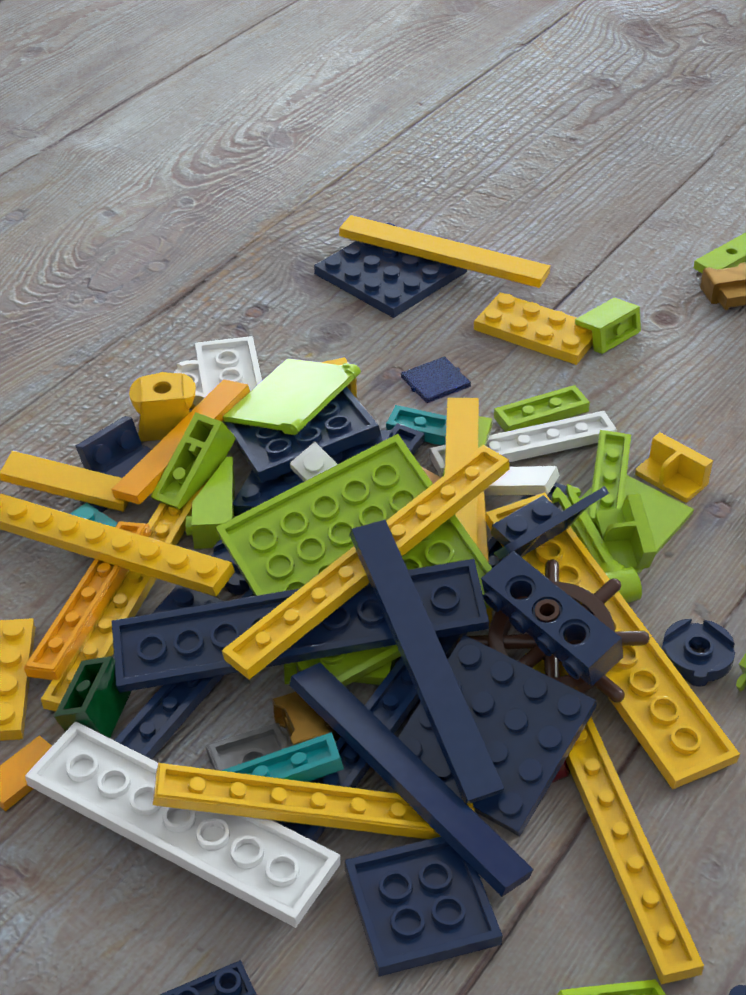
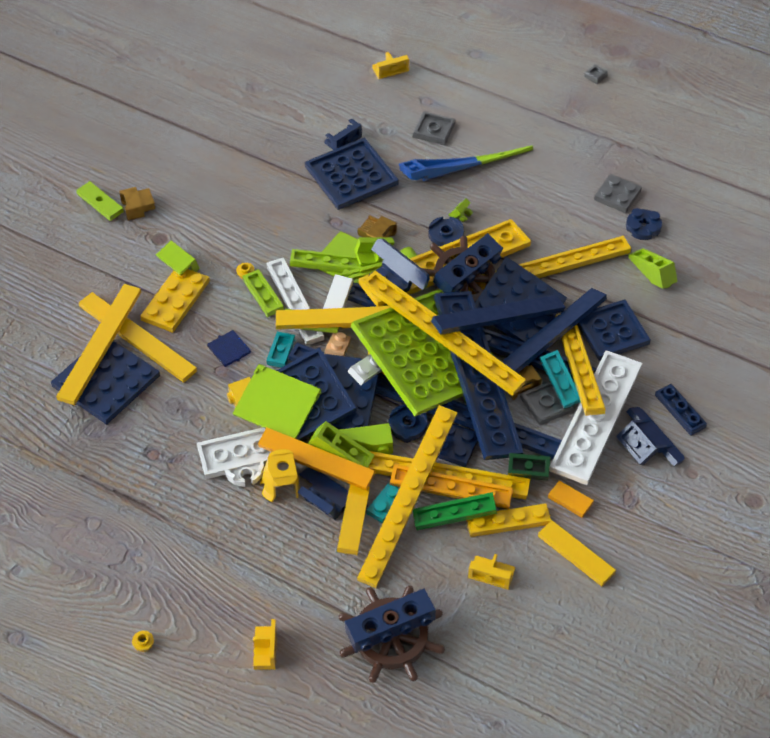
camera: 95 degrees left, 10 degrees up
(37, 597) = (454, 511): none -> green plate
(119, 924) = (645, 439): none -> dark blue plate
(450, 301) = (142, 340): none -> yellow tile
(596, 395) = (244, 268): none -> yellow plate
(675, 468) = (311, 235): yellow panel -> none
(689, 551) = (378, 227): none -> pearl gold piece

